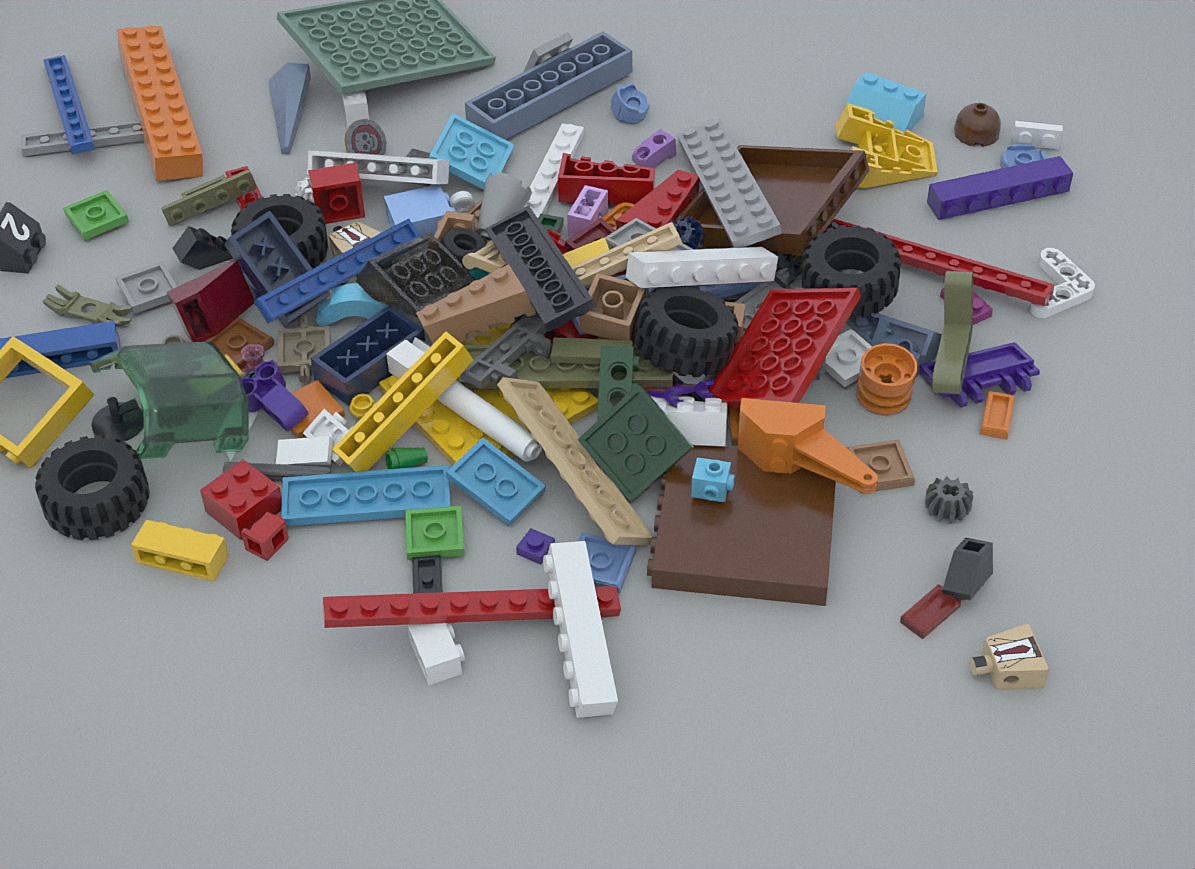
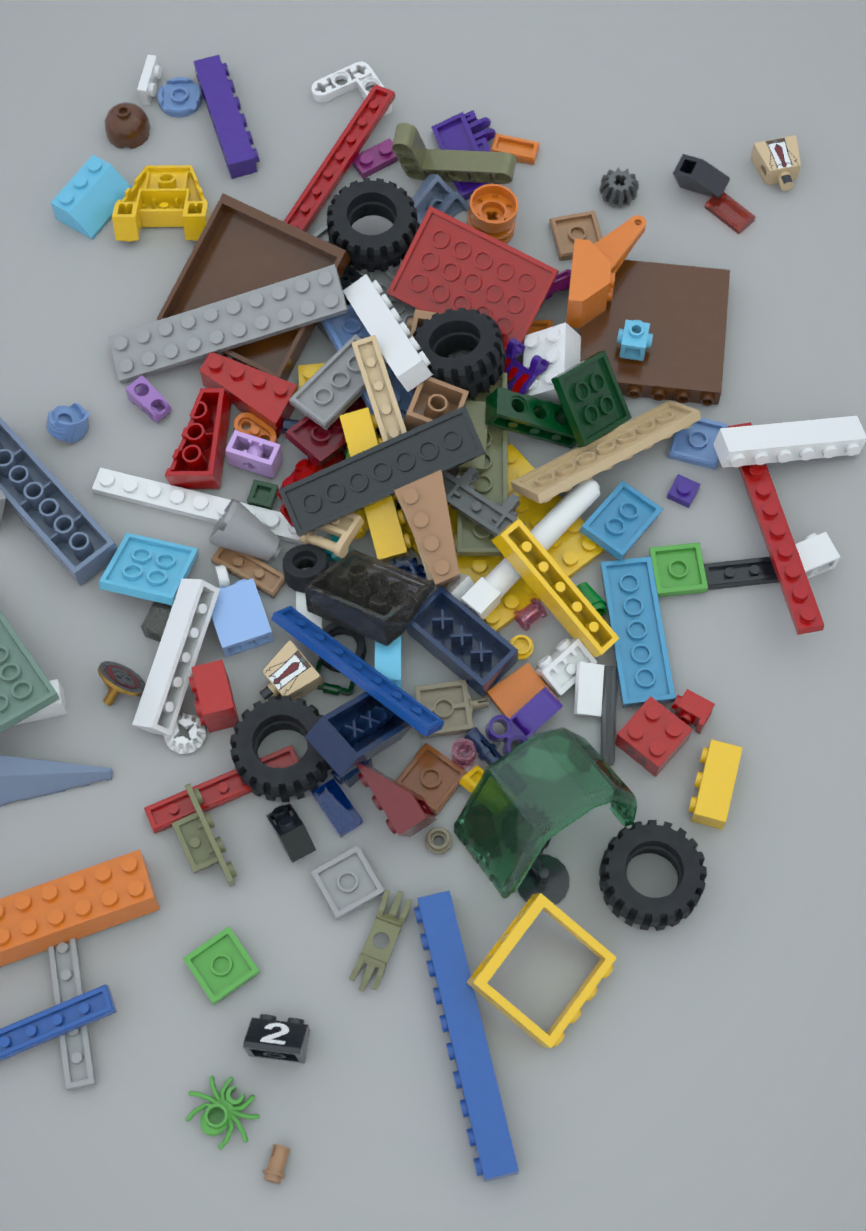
camera: 90 degrees left, 20 degrees up
(452, 221) = (274, 584): medium nougat bracket -> none
(690, 232) = (303, 354): clear blue gear -> none

